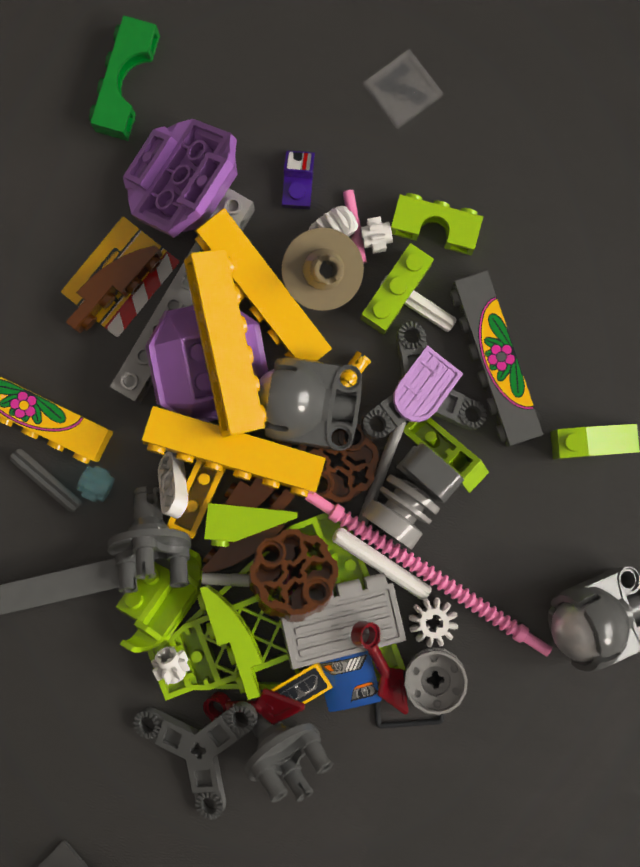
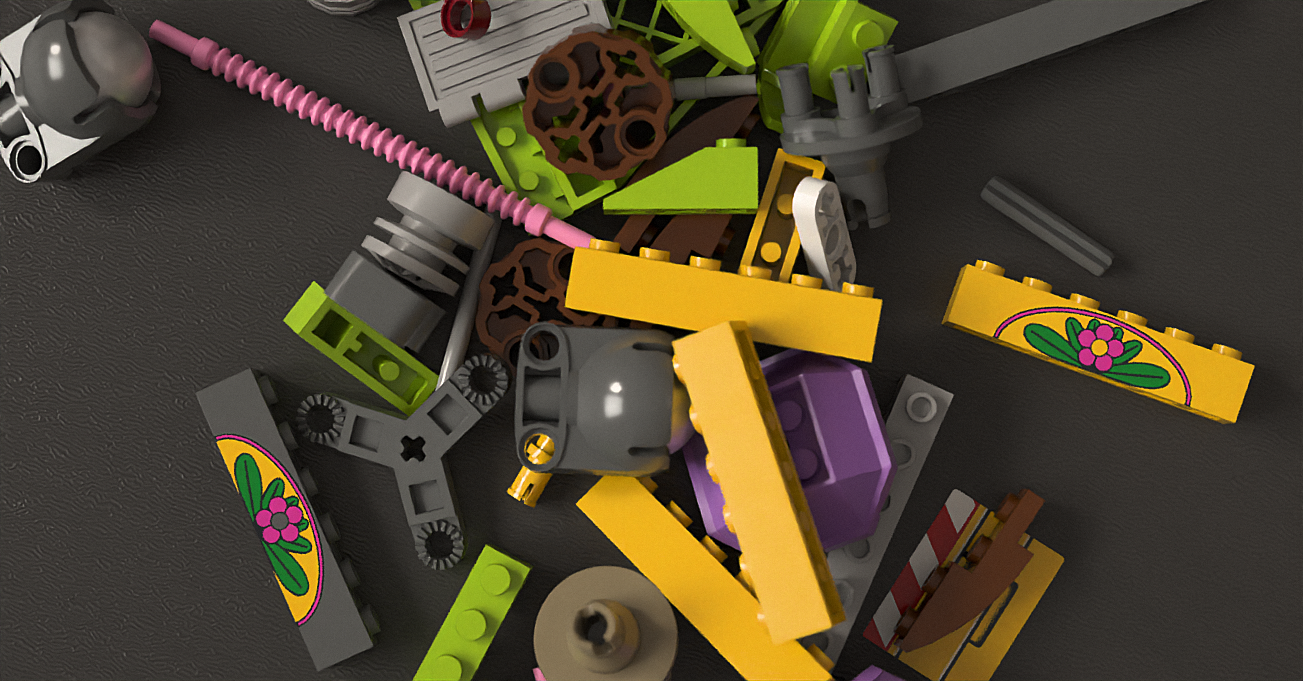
camera: 175 degrees right, 0 degrees up
(95, 483) = (959, 227): clear light blue gear -> none
(381, 563) = (452, 143): white axle -> none
(425, 386) = (407, 456): lavender window -> none
(429, 310) = (414, 593): white axle -> none
(438, 630) = (344, 43): white gear -> none
(594, 441) = (105, 393): lime slope -> none

